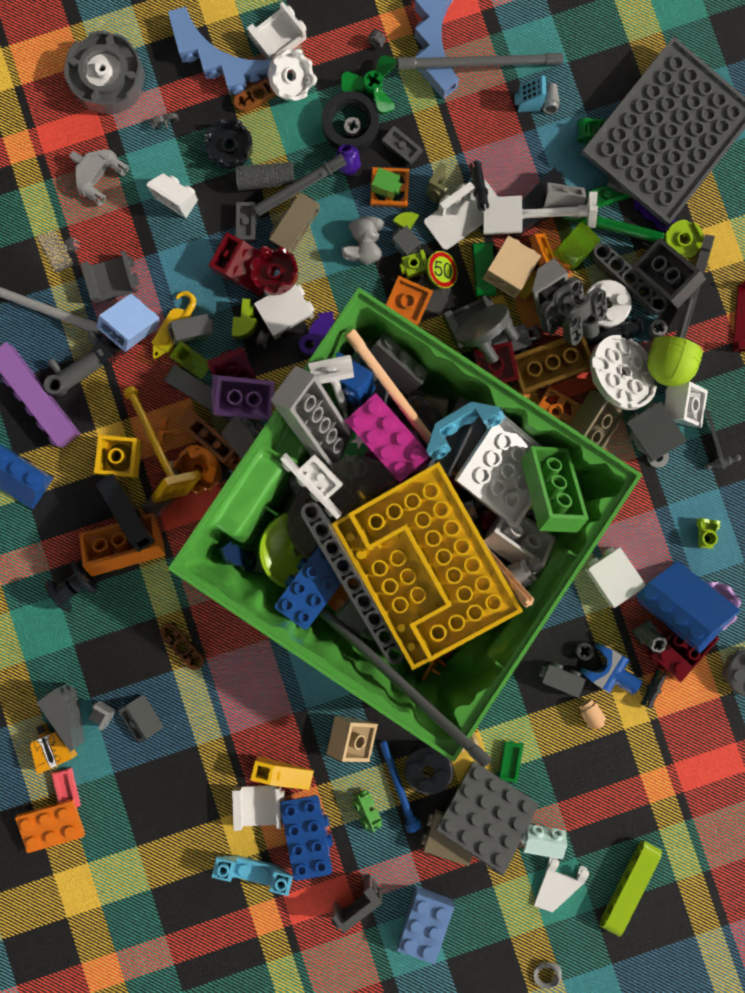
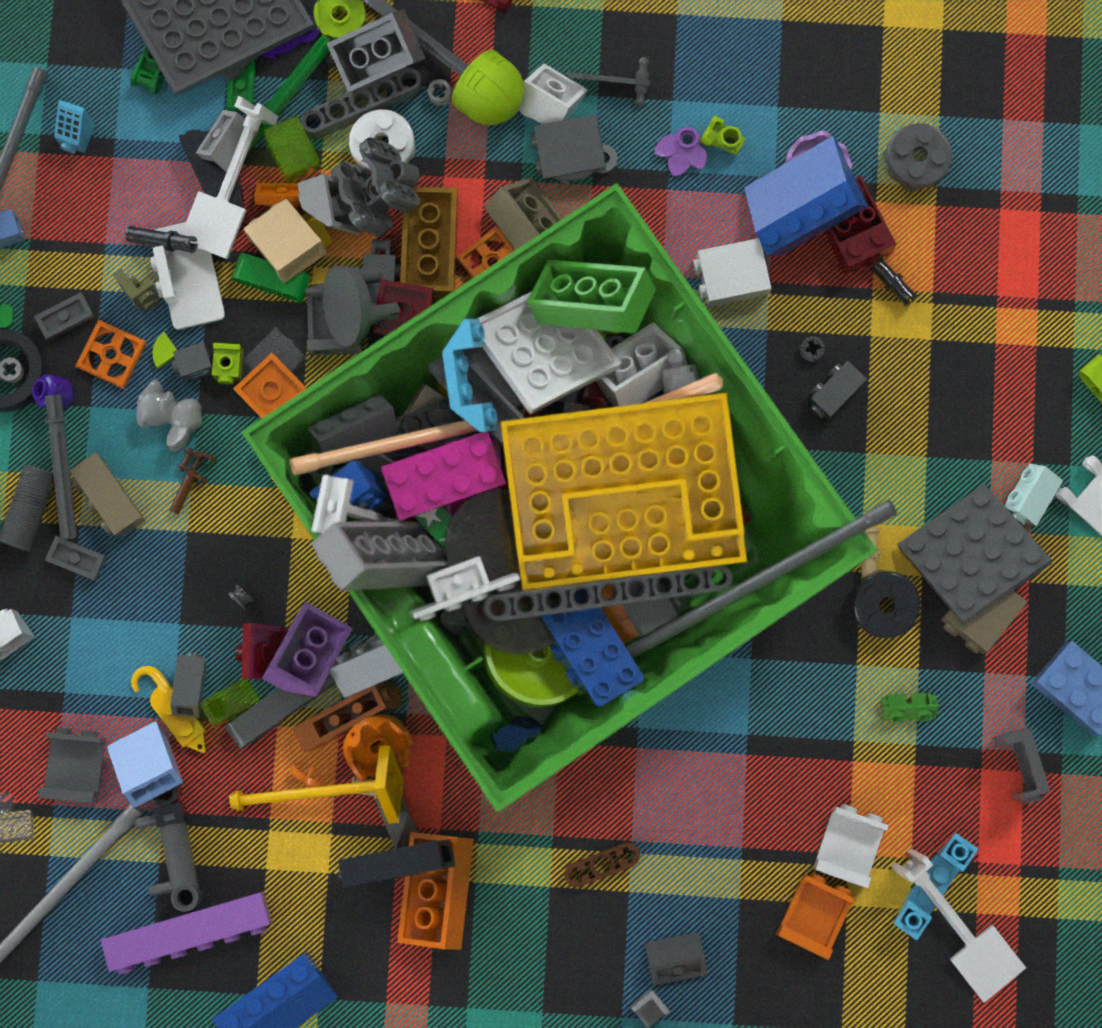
camera: 70 degrees left, 5 degrees down
(71, 586) = (463, 979): black hose -> none
(106, 454) = (299, 852): yellow piece -> none
(203, 800) = (815, 915): none -> orange panel
(218, 925) = (986, 959): none -> white piece
(233, 262) = (133, 583): dark red slope -> none
(245, 326) = (213, 613): lime brick -> none
(272, 259) = (143, 540): dark red plate -> none
(281, 774) = (819, 797): yellow slope -> none
(284, 310) = (214, 553): white panel -> none
(307, 837) = (912, 795): blue bracket -> none
(317, 332) = (261, 523): dark purple brick -> none
(328, 273) = (189, 478): none -> reddish brown piece
(351, 739) = (809, 689): tan slope -> none
(386, 183) = (107, 355): bright green brick -> none
(412, 823) = (945, 654): blue piece -> none
(433, 664) = (757, 547): orange piece -> none
(442, 269) = (249, 330): piece -> none
(510, 761) = (916, 498): green tile -> none
(552, 102) = (93, 104): light grey cone -> none
(592, 714) = (895, 371): light nougat brick -> none
(606, 368) = (503, 164): white plate -> none
(612, 672) = (852, 324): blue connector -> none
(623, 329) = (423, 136): black pin -> none
(648, 635) = (822, 260): dark grey piece -> none
(683, 508) = (682, 155): none -> medium lavender plate

